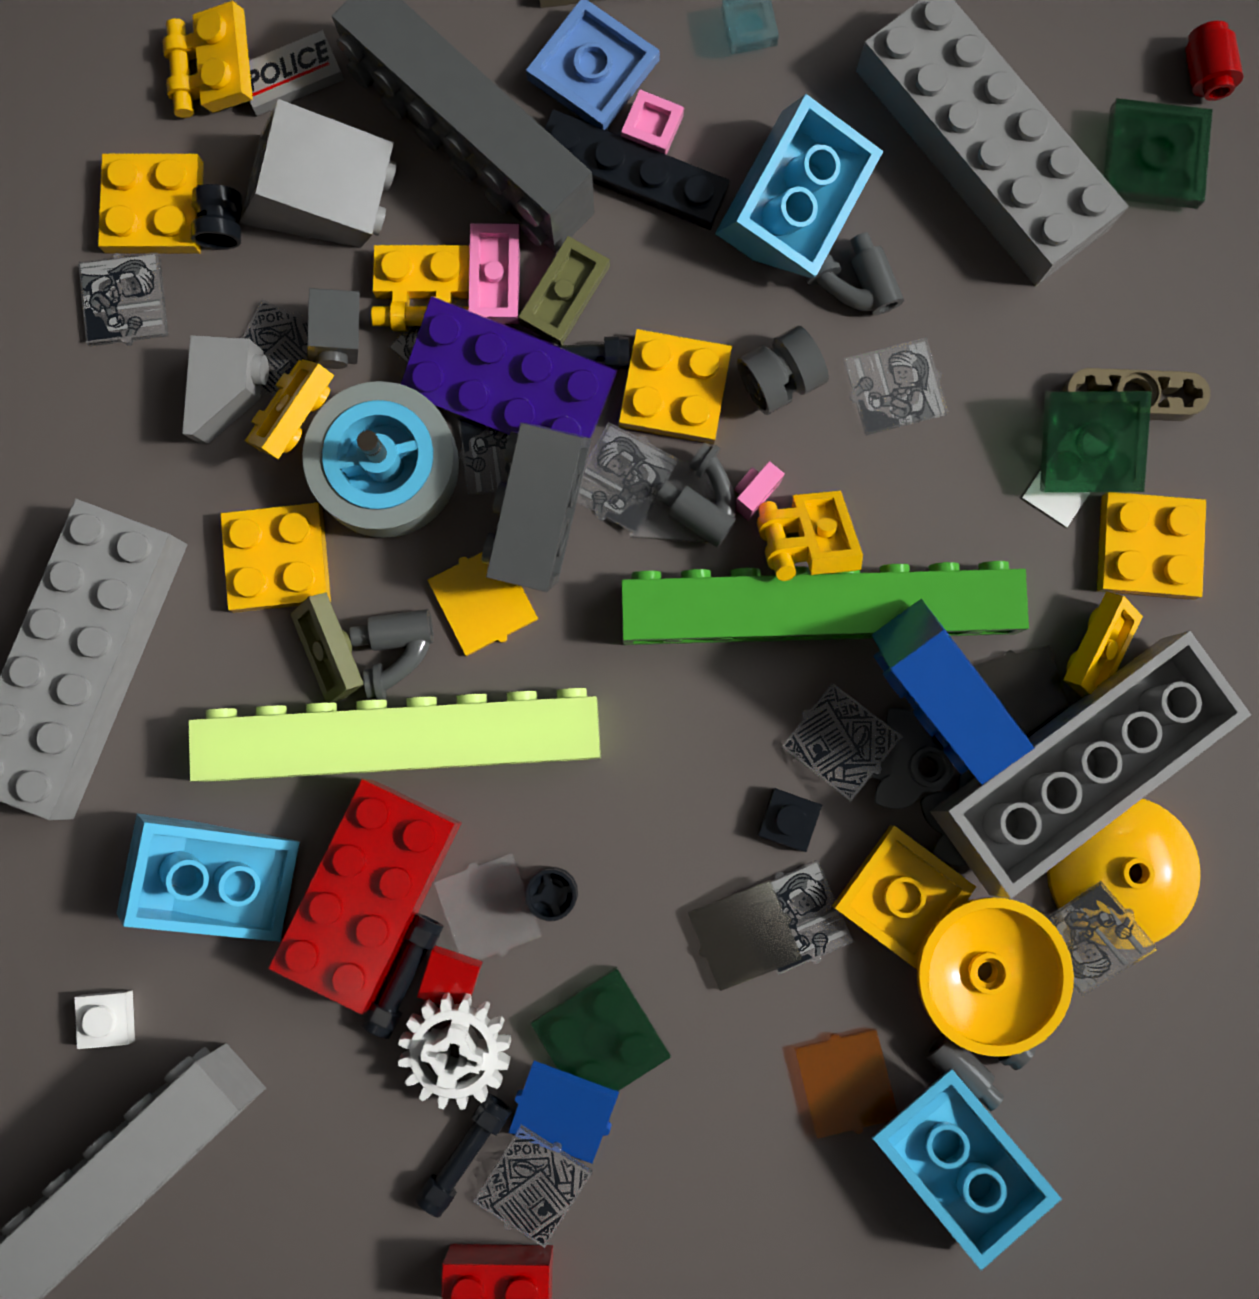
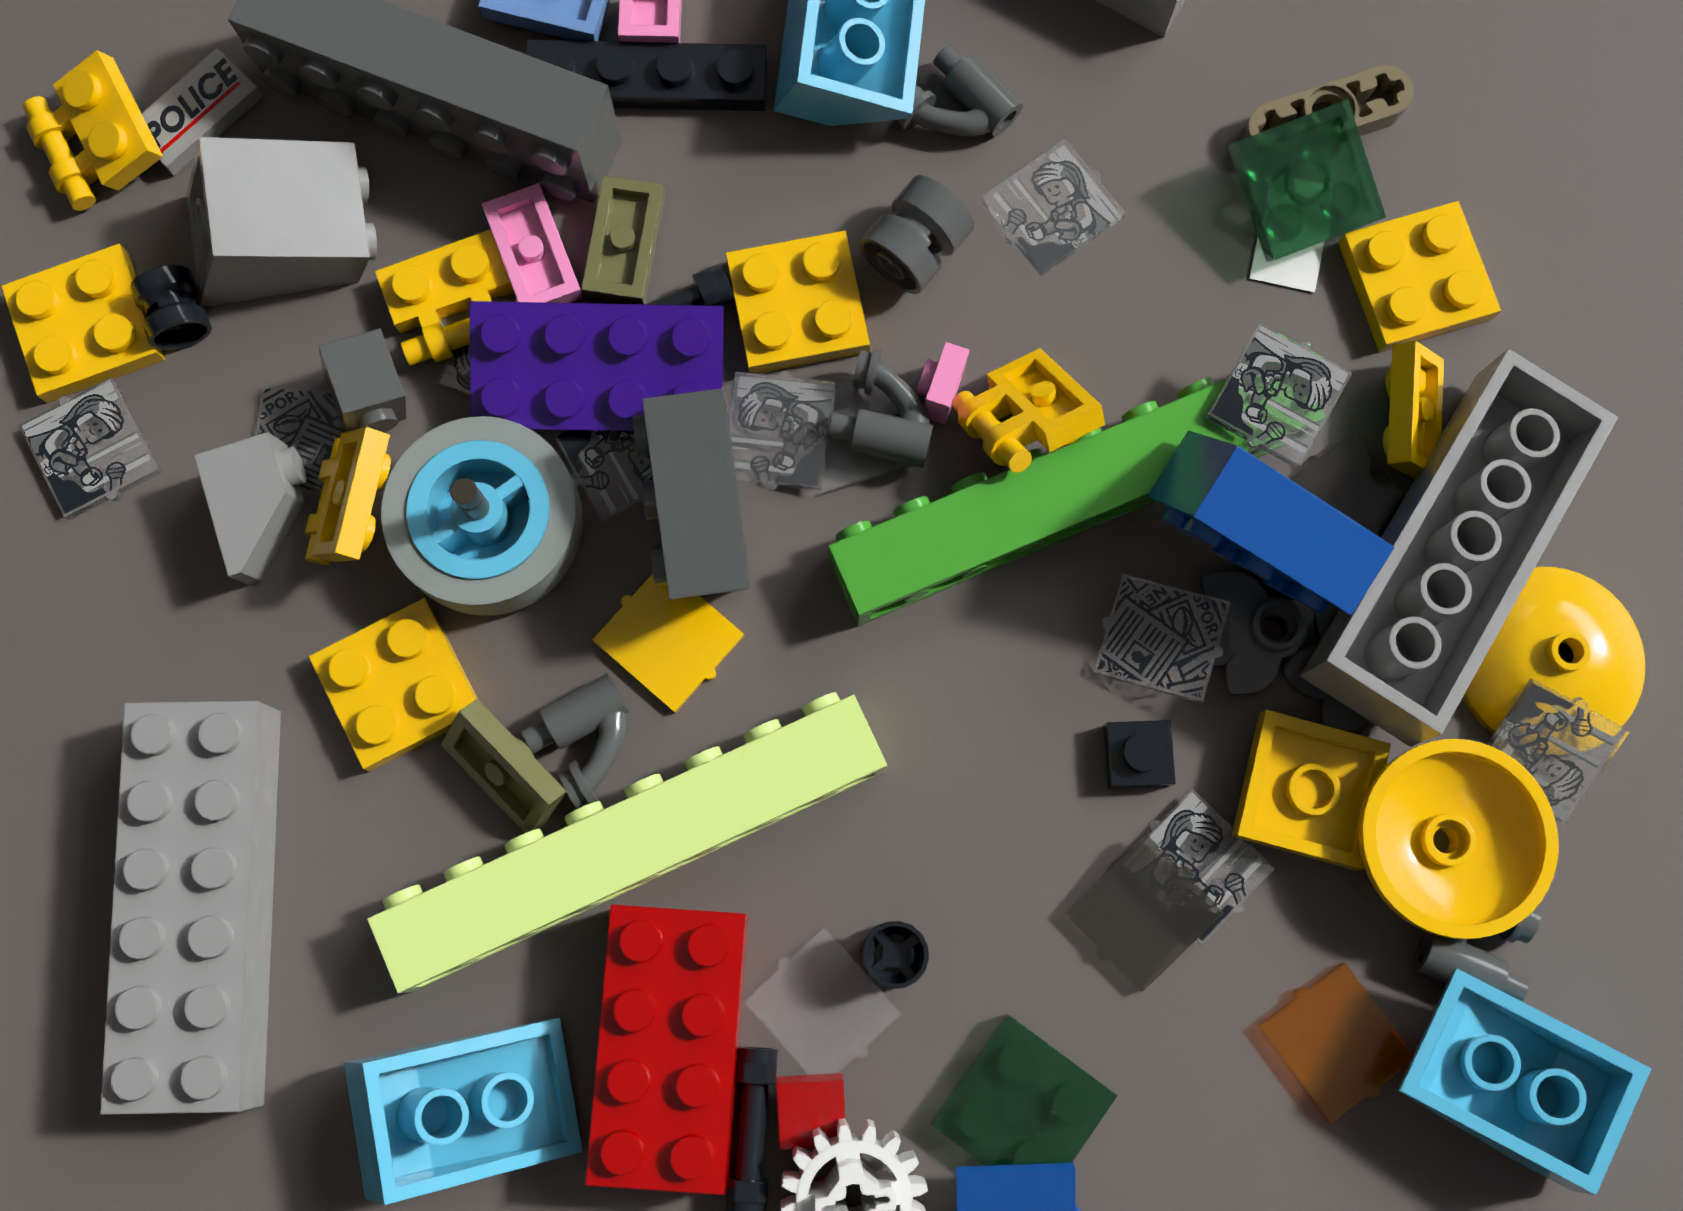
camera: 25 degrees left, 5 degrees down
(1001, 598) = (1278, 395): none -> piece

